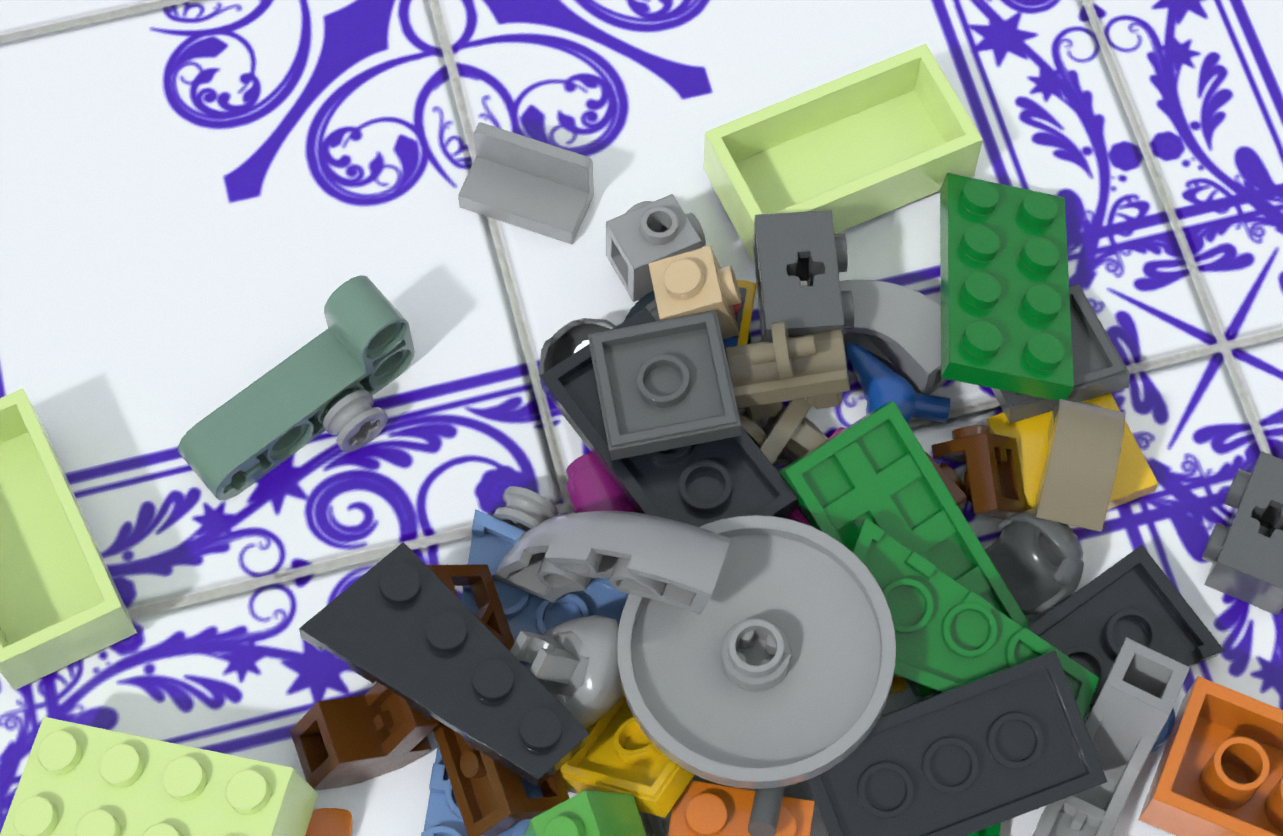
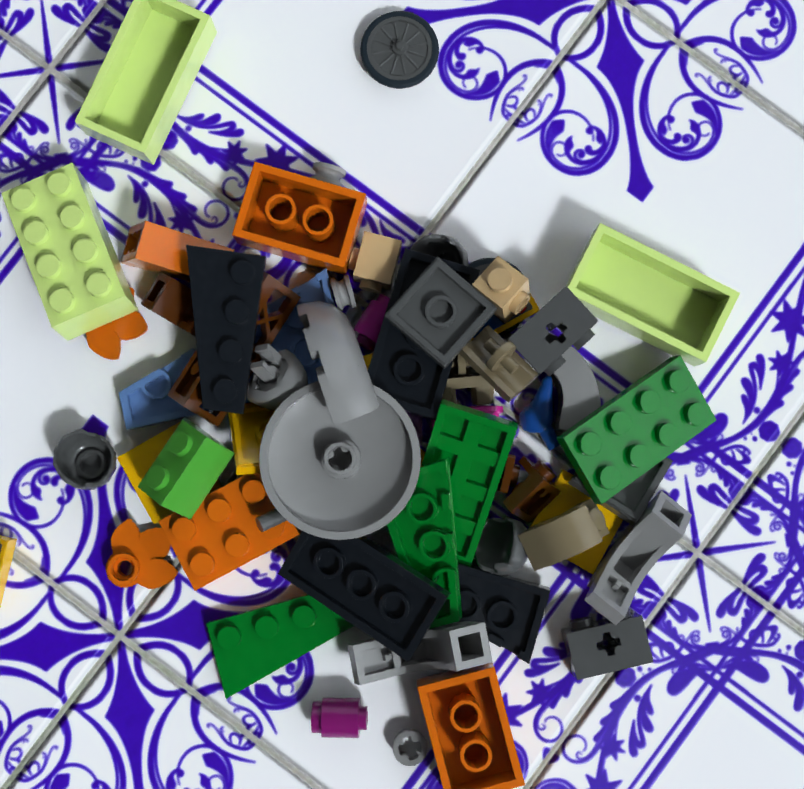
camera: 50 degrees right, 20 degrees up
(265, 693) = (161, 249): none -> orange slope
(271, 219) = (399, 49): none -> dark grey wheel
(286, 407) = (311, 140): sand green beam -> none
(383, 480) = (300, 218): none -> orange brick
(520, 442) = (375, 262): none -> tan brick
(528, 183) = (513, 156): light grey panel -> none
(646, 235) = (527, 244): light grey brick -> none
(1169, 405) = (634, 555): none -> light grey arch

